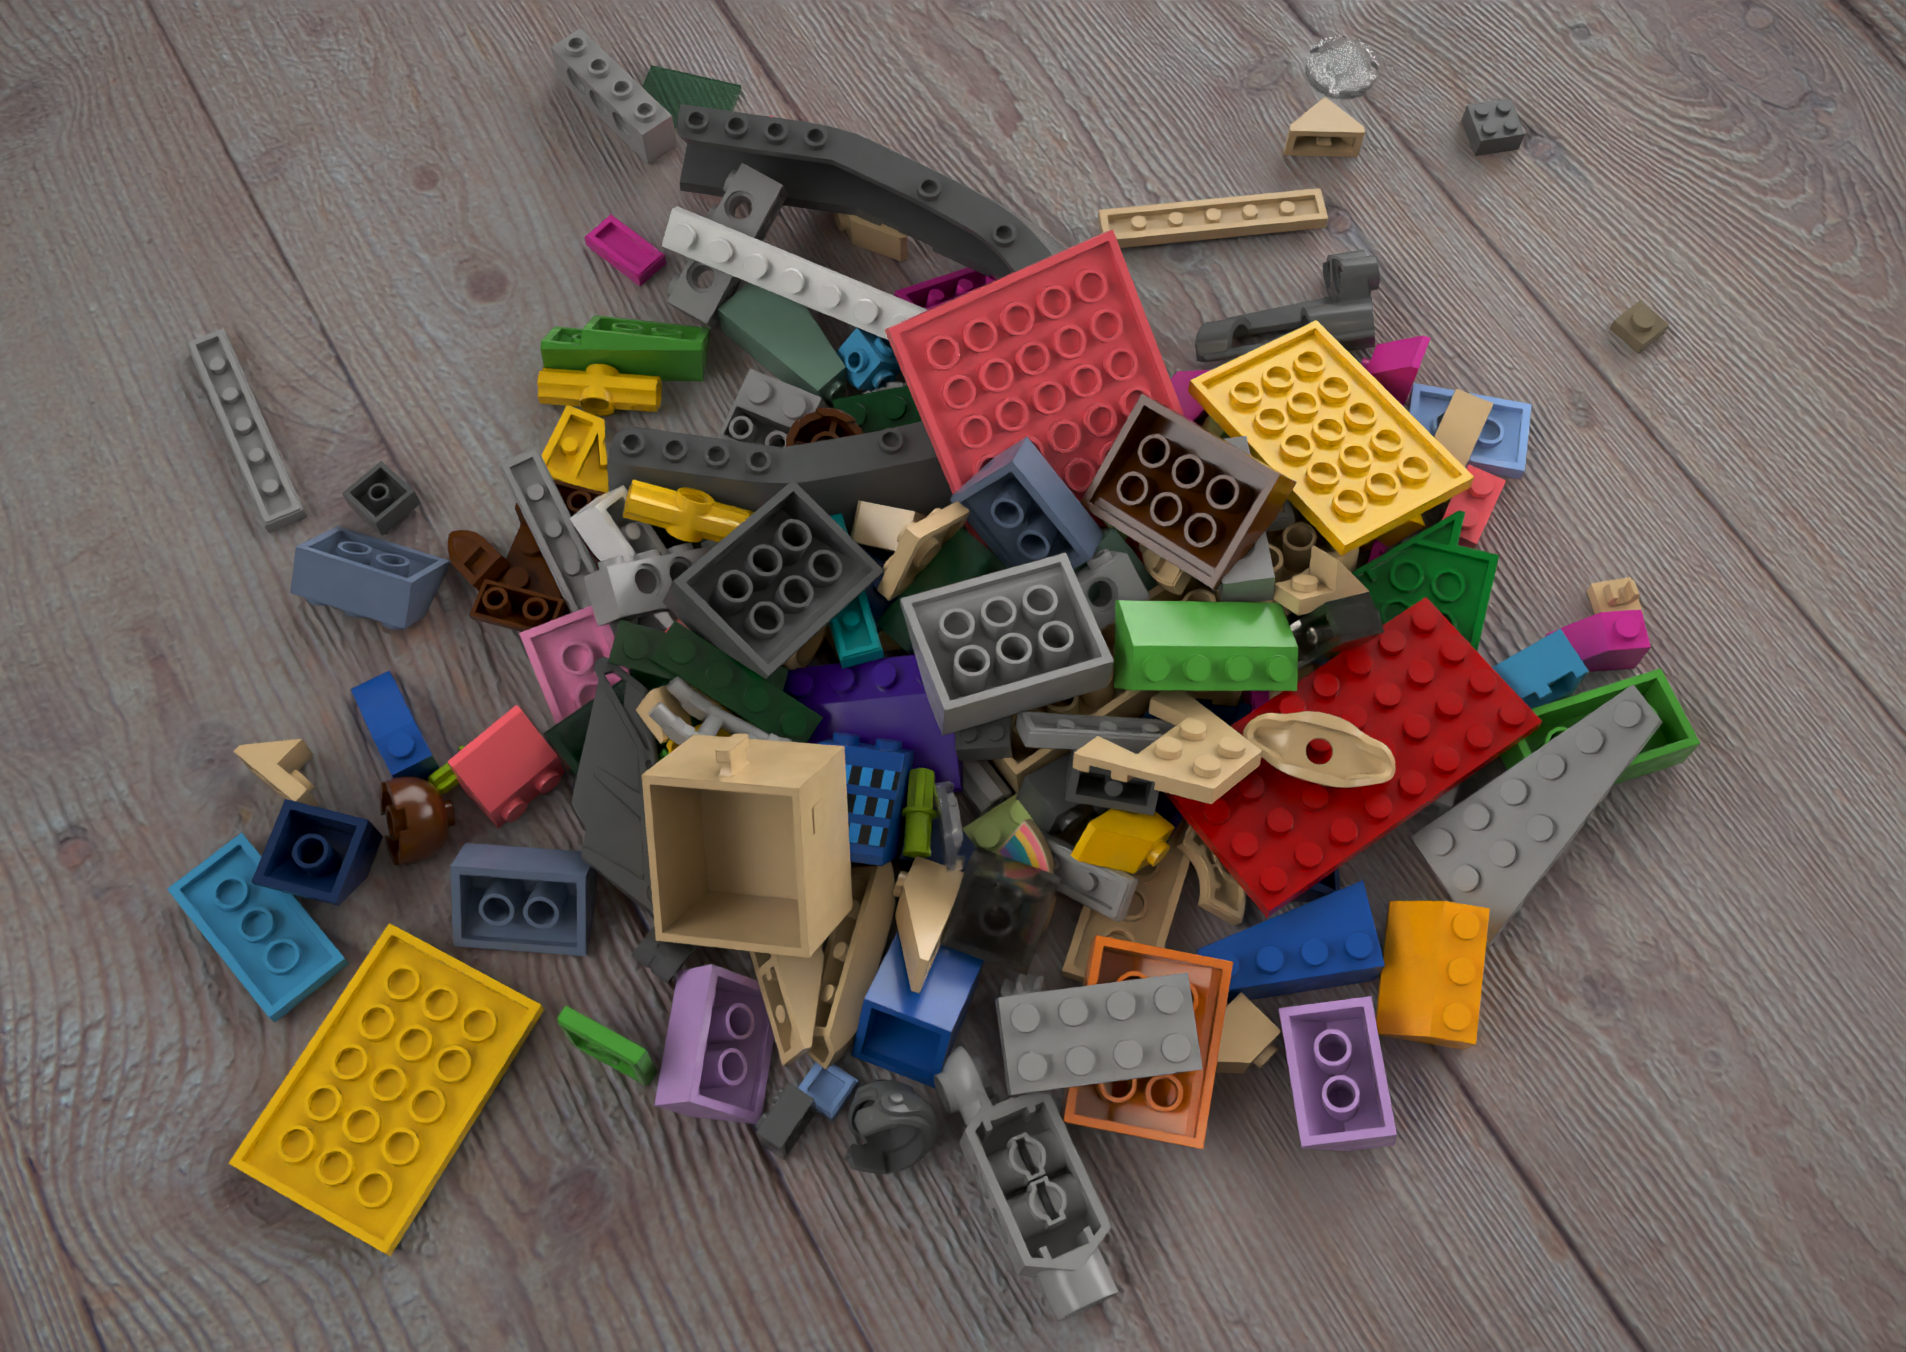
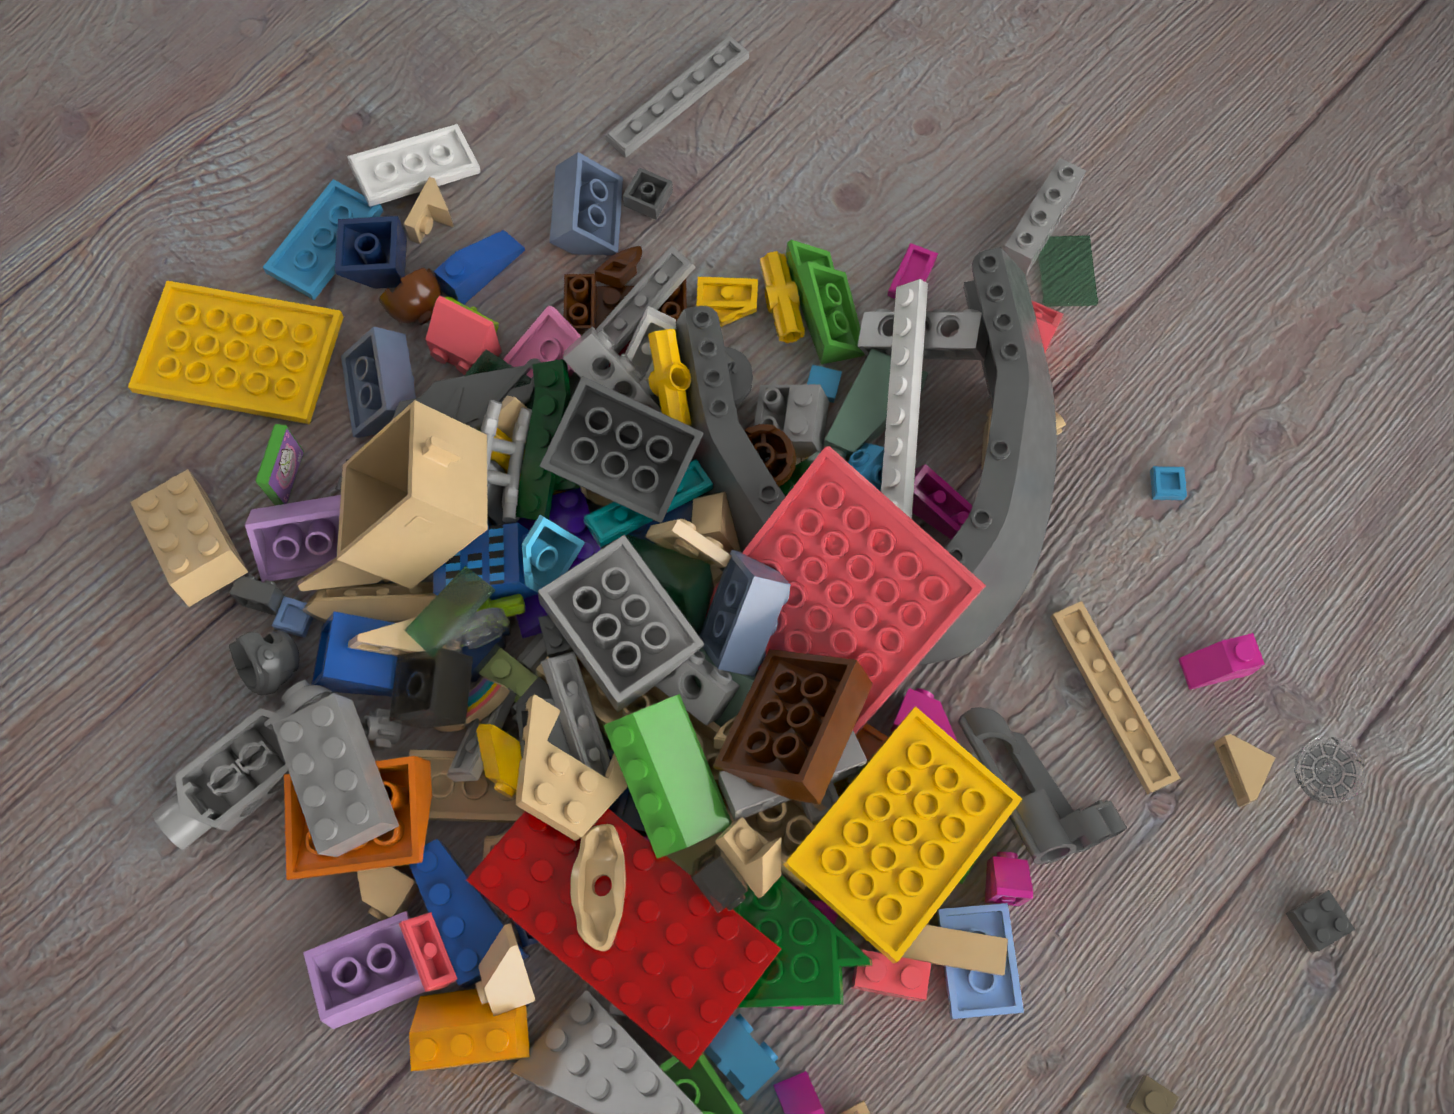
camera: 75 degrees right, 5 degrees up
(194, 778) = (407, 164): none -> white tile
(673, 1191) = (188, 538): none -> tan brick
(727, 381) = (827, 378): none -> dark azure tile
(874, 711) = (548, 553): none -> medium azure slope
(924, 837) = (449, 611): none -> clear green piece
(984, 94) = (1168, 483): none -> dark azure tile
(1205, 111) = (1222, 661): none -> dark pink slope
(1338, 984) = (428, 952): none -> coral slope
(1387, 899) = (504, 975): none -> tan slope

